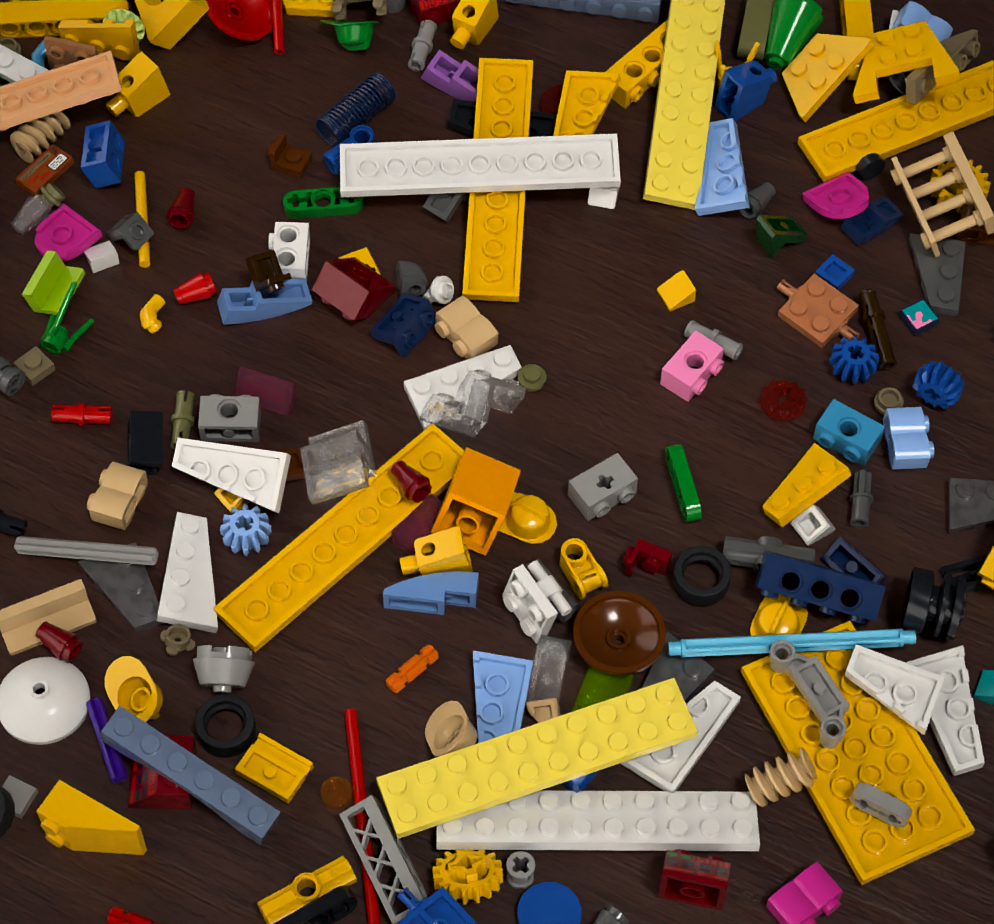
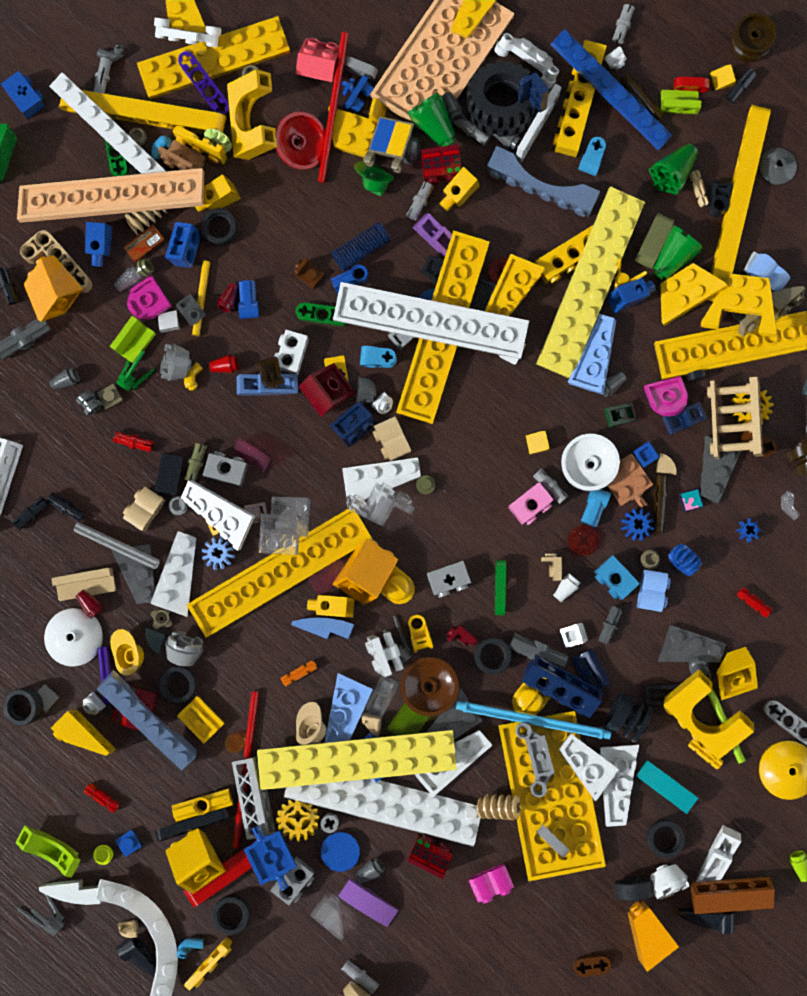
camera: 15 degrees right, 25 degrees up
(95, 786) = (93, 704): none -> white plate
(123, 295) = (175, 363): none -> light grey cone
(144, 112) = (219, 212): none -> black tyre
(169, 482) = (178, 505): none -> light grey plate
(173, 673) = (154, 639): none -> clear light blue tile
(212, 208) = (248, 302): none -> blue piece
(412, 483) = (327, 549): dark red cone -> none
(415, 235) = (373, 357): none -> dark azure piece
(755, 436) = (555, 569): none -> tan bracket
(756, 282) = (590, 449): none -> white dish
(781, 460) = (567, 586): none -> white cone
(785, 345) = (597, 501): none -> dark azure piece
(806, 484) = (577, 609): yellow wing -> none
(868, 279) = (665, 465): none -> tan tile

